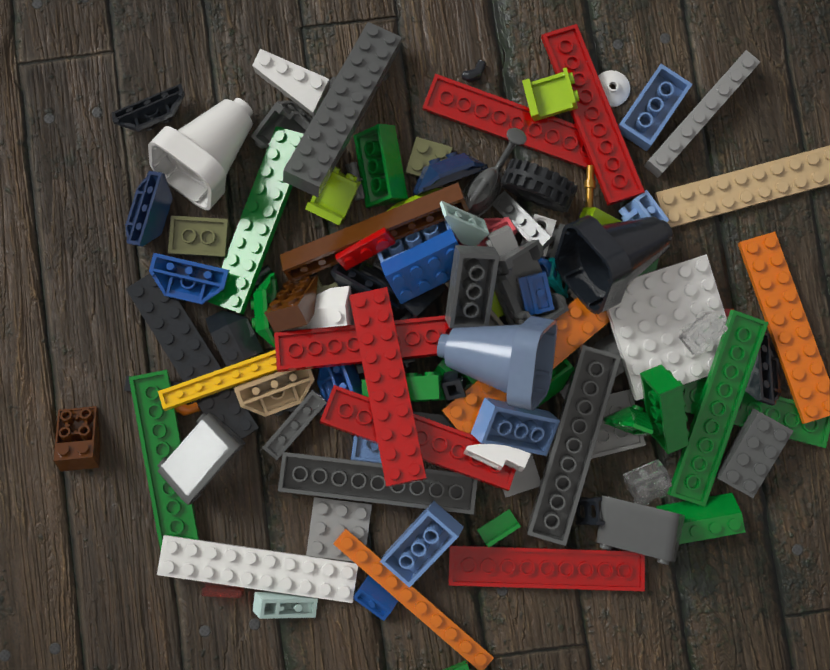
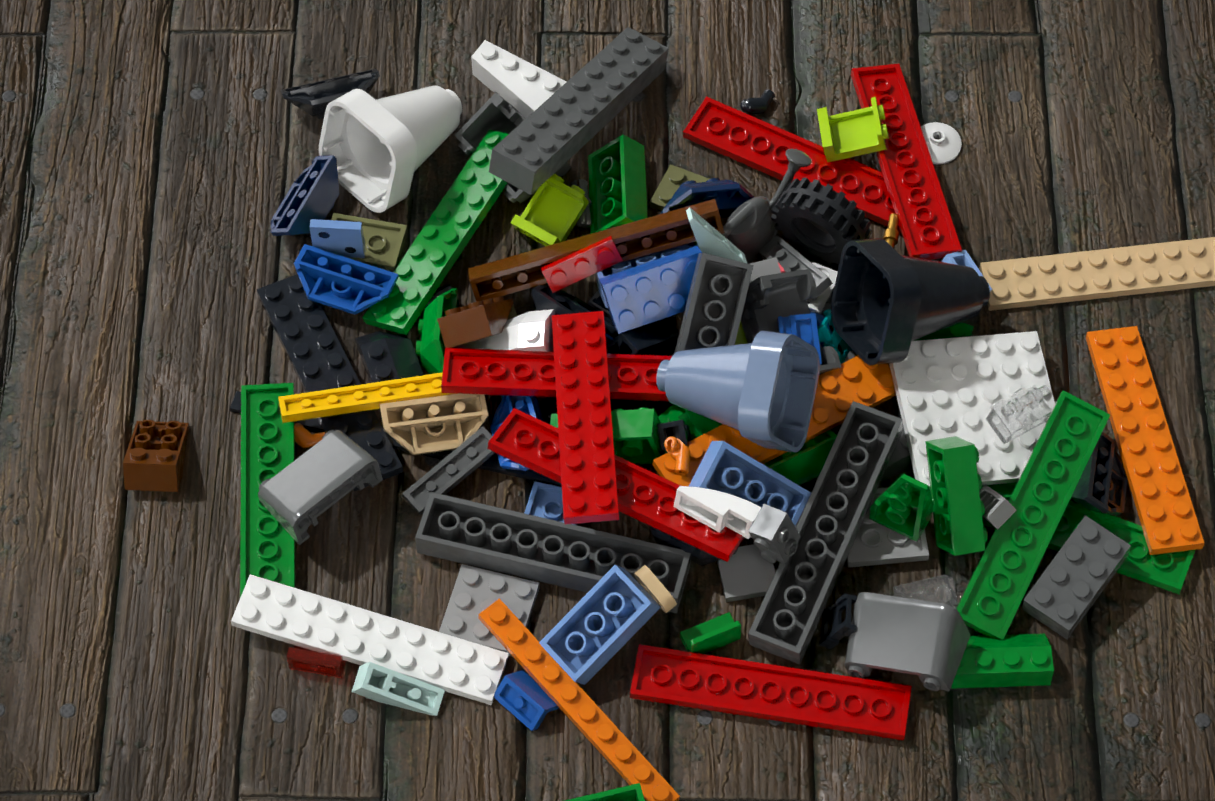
camera: 10 degrees right, 25 degrees down
(177, 246) = (338, 237): none -> medium blue tile
(457, 514) = (655, 588): none -> tan beam
(462, 406) = (680, 453): none -> orange arm
(539, 467) = (774, 534): none -> dark grey brick
(654, 107) = (988, 163): medium blue brick -> none
(699, 416) = (996, 507): none -> light grey slope
(701, 113) = (1050, 180): light grey brick -> none

